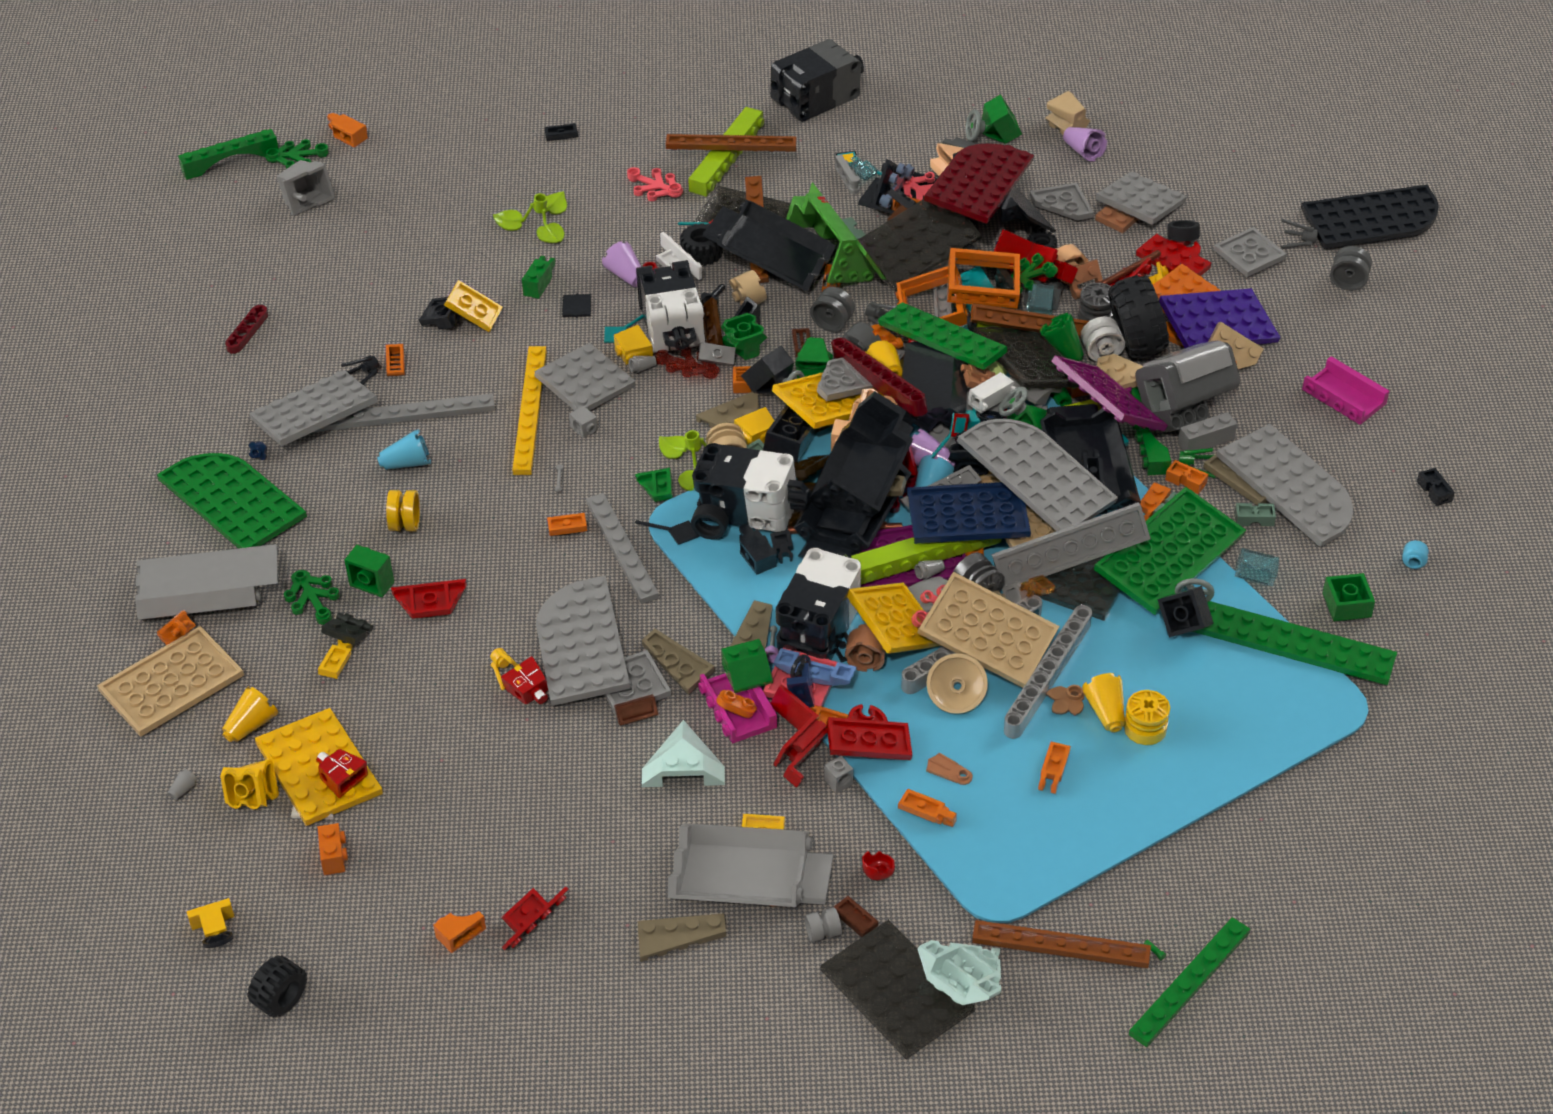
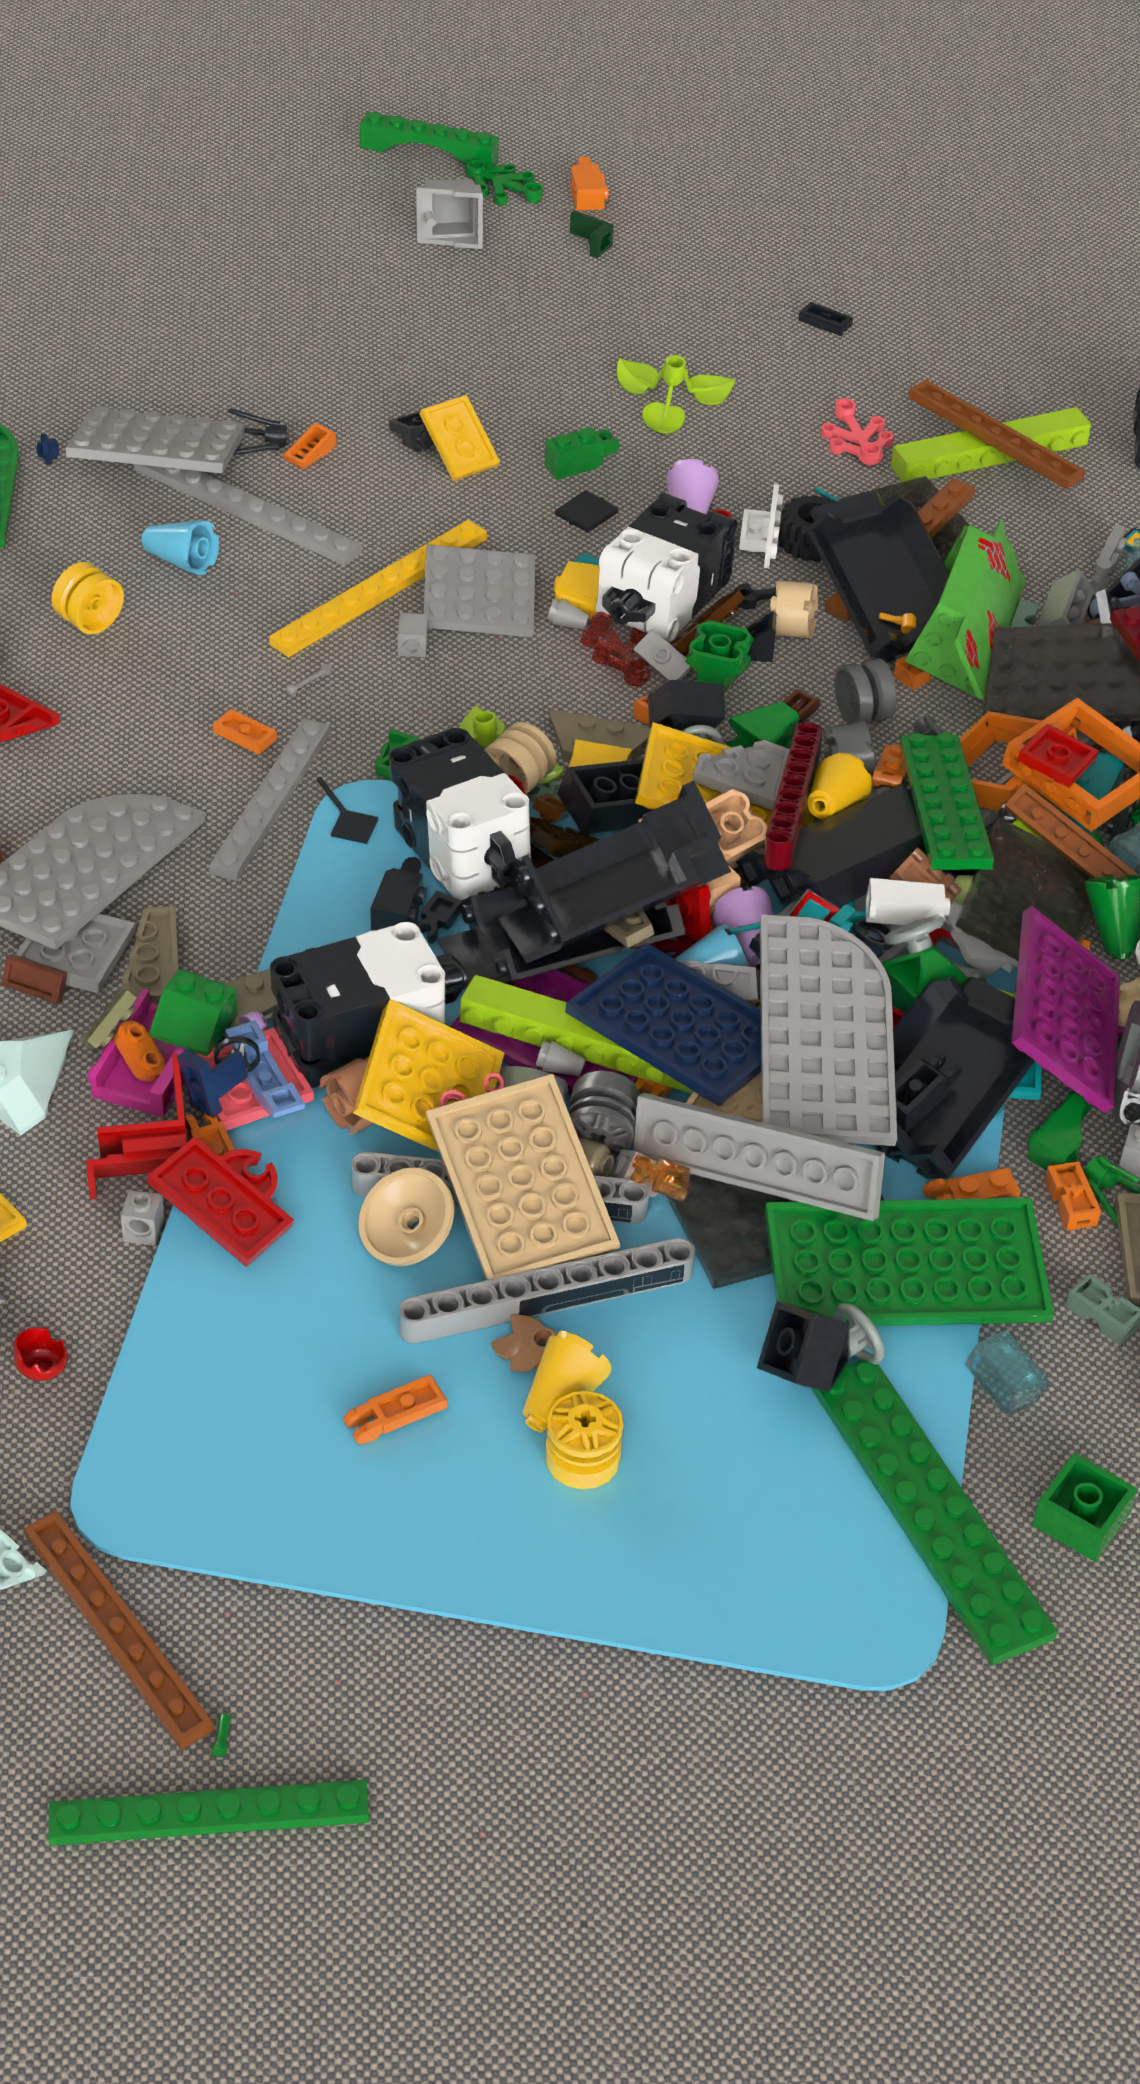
camera: 40 degrees right, 0 degrees up
(236, 343) = (209, 325): dark red beam -> none
(384, 152) = (595, 230): none -> dark green bracket
(705, 530) = (382, 828): black tyre -> none
(707, 699) = (101, 1031): none -> olive plate
(805, 263) = (907, 621): none -> light orange hand
(862, 211) = (1067, 600): none -> light grey brick
(927, 808) = (180, 1334): orange hinge -> none
(948, 769) = (275, 1313): nougat piece -> none
(979, 279) = (1057, 755): none -> red plate

